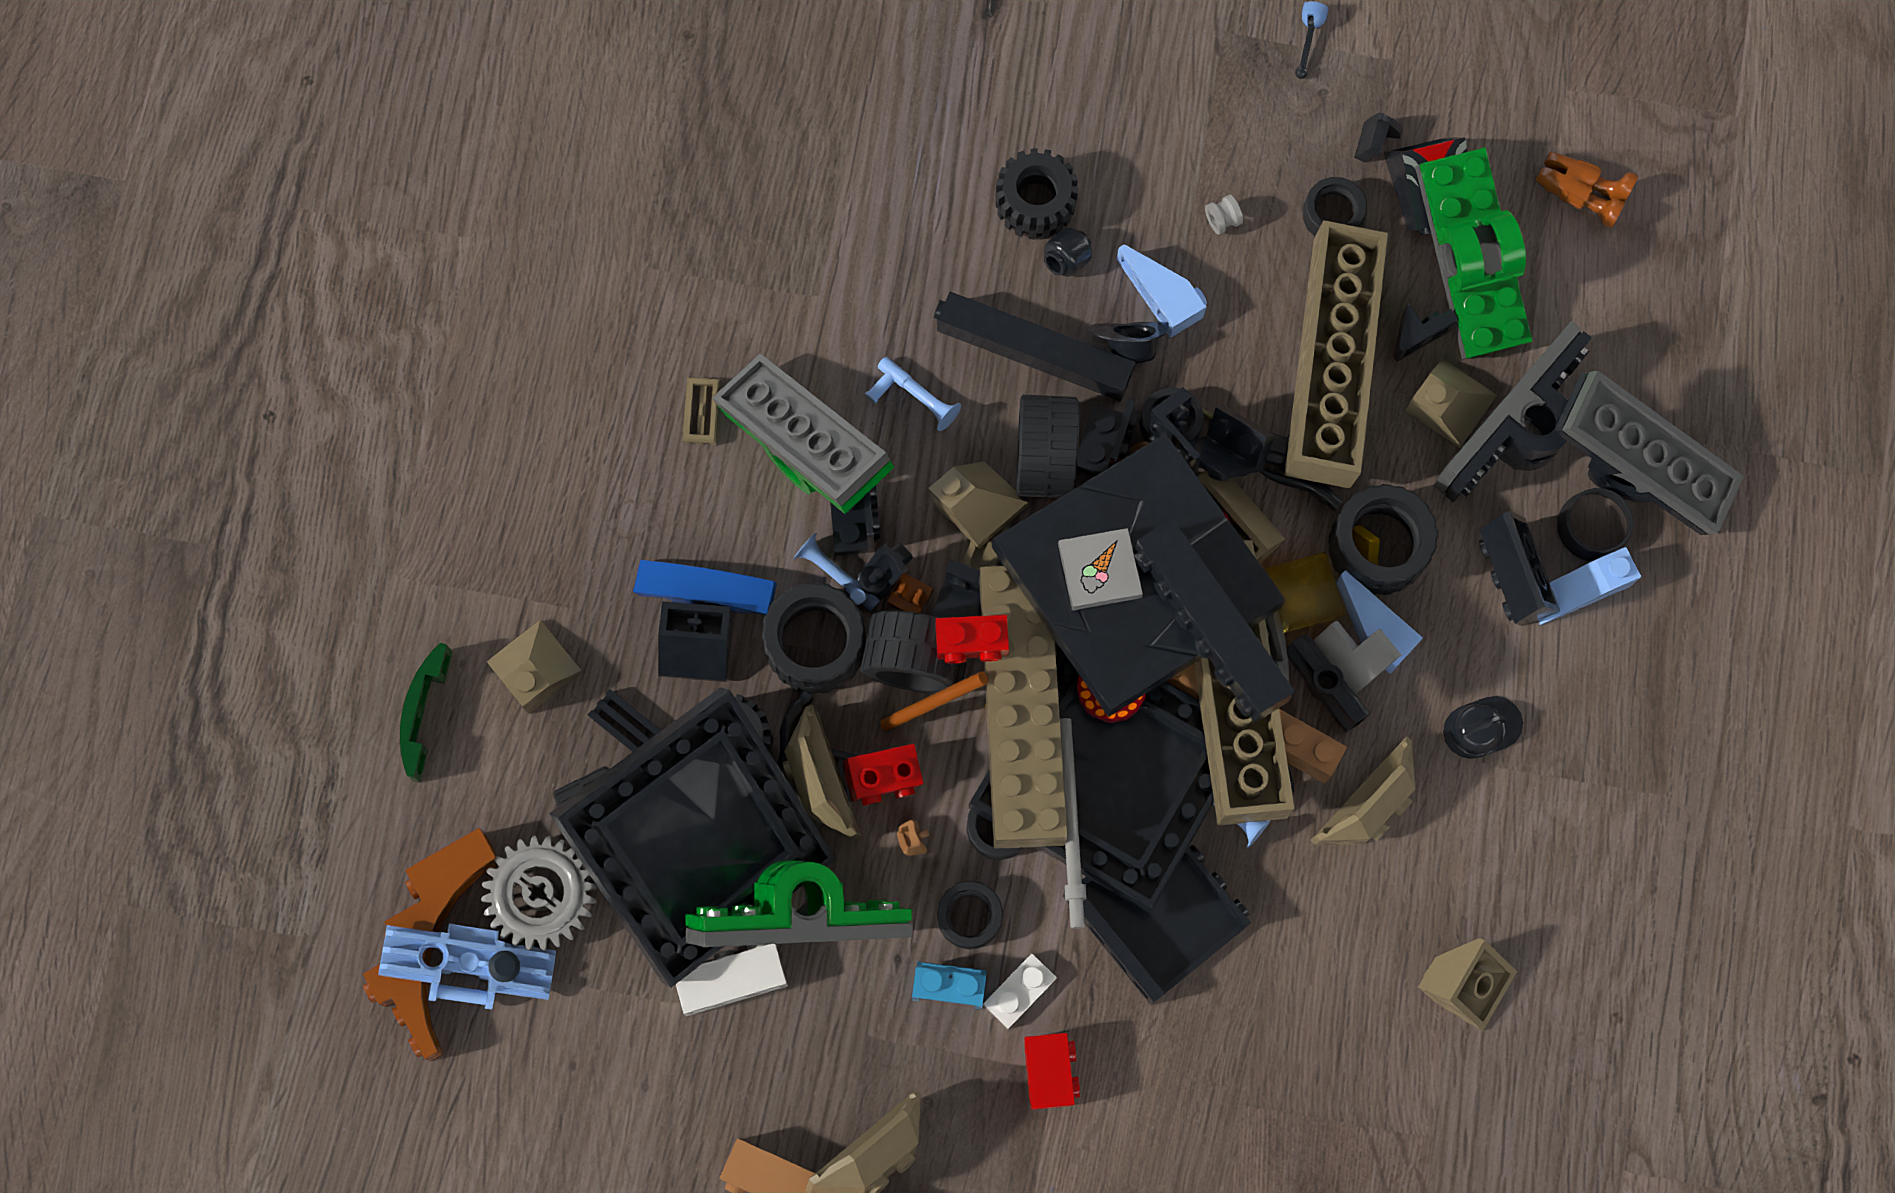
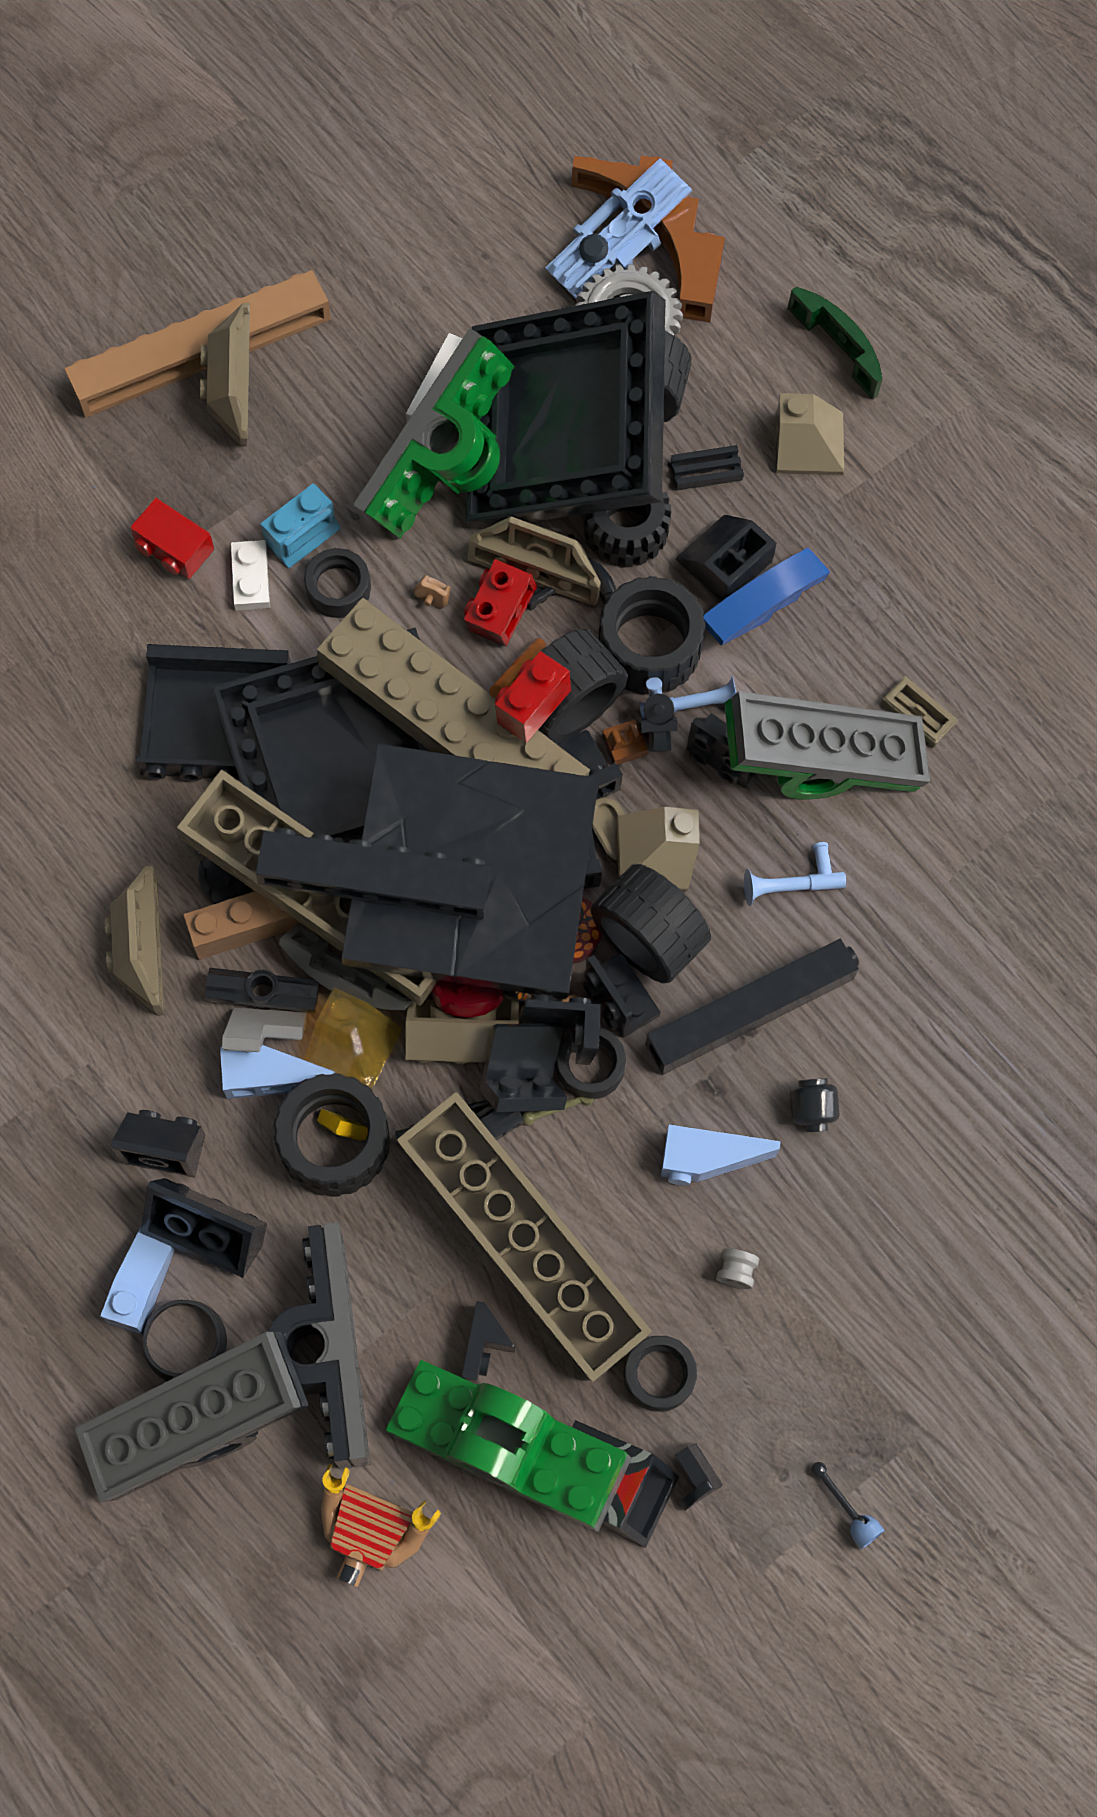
camera: 130 degrees right, 5 degrees down
(1042, 170) = (904, 1094): black tyre -> none
(1075, 891) = (277, 640): light grey bar -> none
(1100, 569) = (498, 831): light grey tile -> none
(1132, 340) = (692, 1083): black piece -> none
(1450, 403) = (399, 1315): dark tan slope -> none
(1483, 727) = (112, 1089): black piece -> none
(1495, 649) = (159, 1143): none -> black slope
(1576, 179) = (495, 1626): dark orange piece -> none
(1596, 299) = (369, 1528): none -> torso

